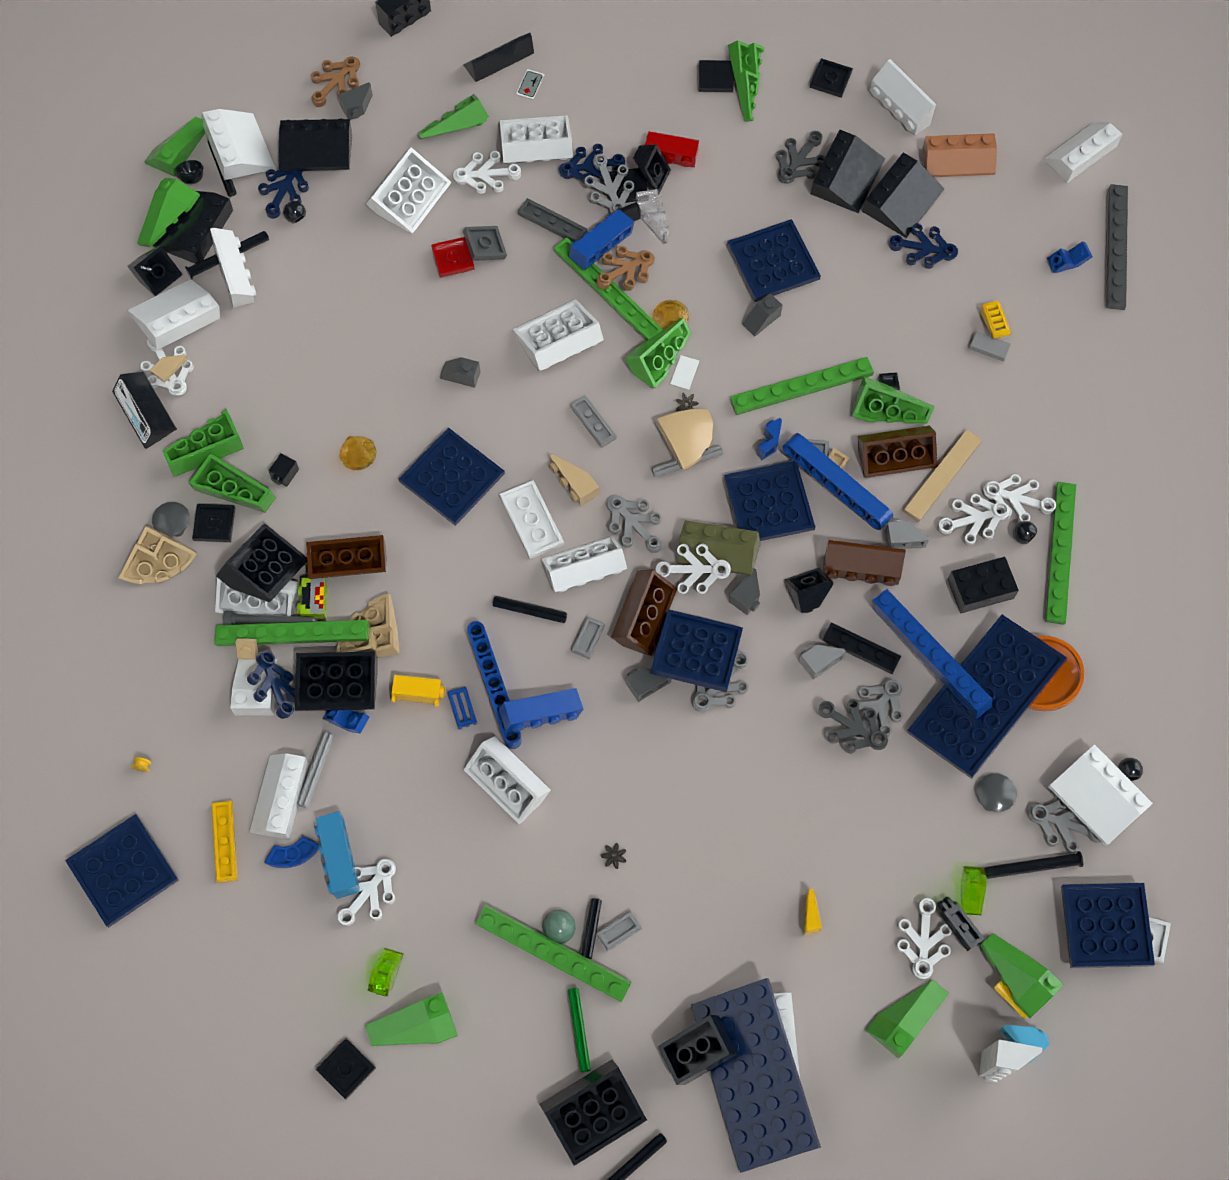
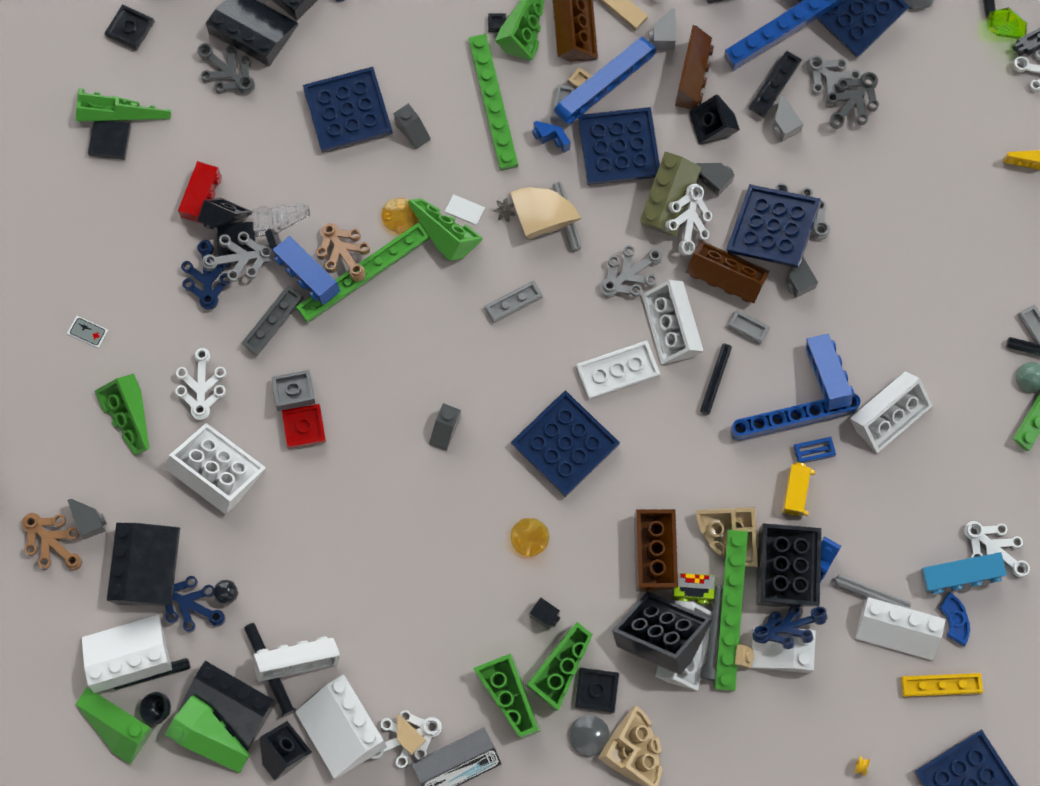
camera: 85 degrees left, 5 degrees up
(500, 57) = (47, 360): black slope -> none
(536, 139) = (164, 328): white slope -> none
(559, 334) = (411, 325): white slope -> none
(579, 482) = (585, 319): tan slope -> none
(614, 859) = (965, 323): clear smoke plant -> none

